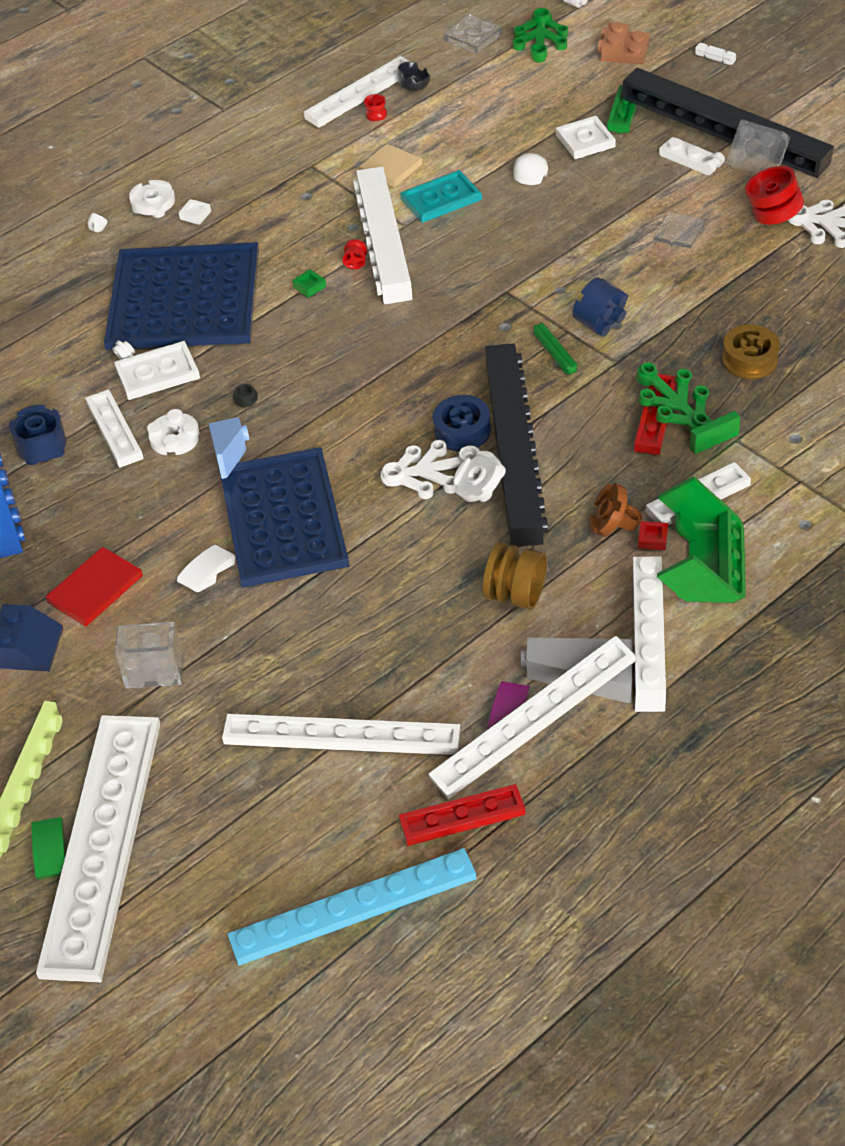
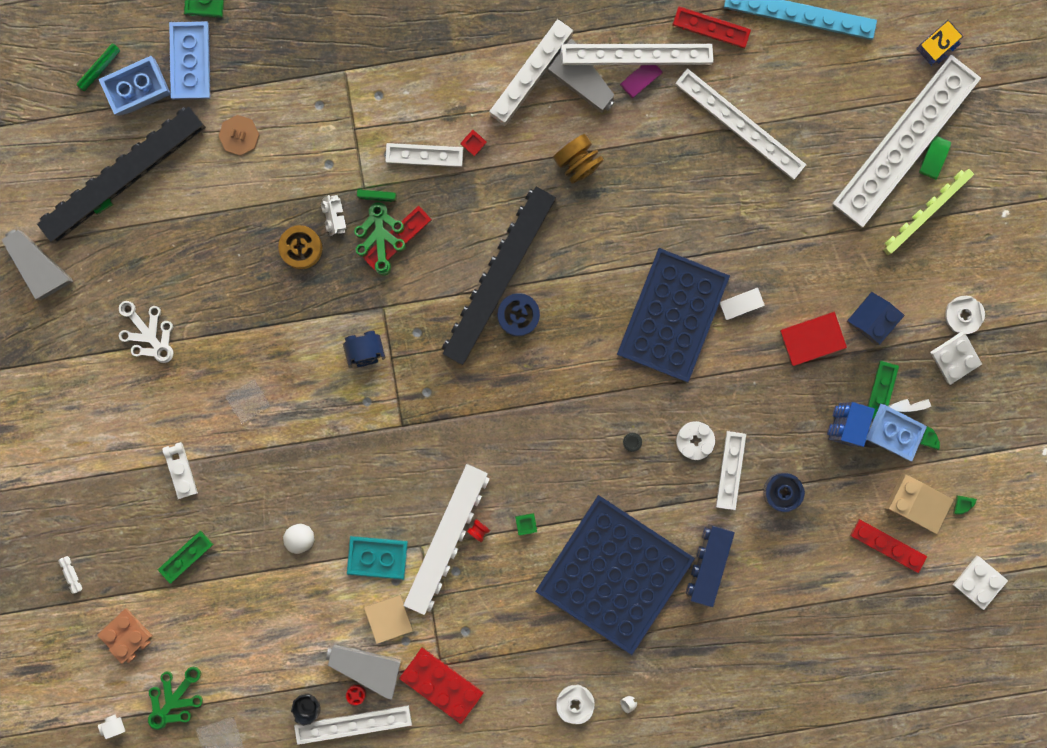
camera: 150 degrees left, 40 degrees up
(83, 338) = (710, 565): none -> dark blue brick
(123, 350) = (685, 541): white plate -> none
(124, 982) = (939, 42): none -> brick
(149, 655) = (816, 245): clear brick -> none
(156, 370) = (674, 507): white plate -> none
(194, 211) = (555, 664): white plate -> none
(228, 443) = (673, 394): light blue slope -> none
(298, 152) = (441, 685): none -> red plate
(382, 124) = (366, 668): none -> light grey slope
(400, 474) = (564, 295): white plant -> none
(488, 469) = (533, 255): white plate -> none
(555, 348) = (413, 343): green axle -> none
(585, 137) = (236, 544): white plate -> none
(613, 511) = (488, 171): dark orange tile -> none
(716, 546) = (453, 100): green windscreen -> none
(719, 118) = (135, 480): black brick -> none
(752, 398) = (333, 222): none -> white hinge
(756, 148) = (144, 425): clear brick -> none
(774, 195) = (171, 383): red wheel -> none

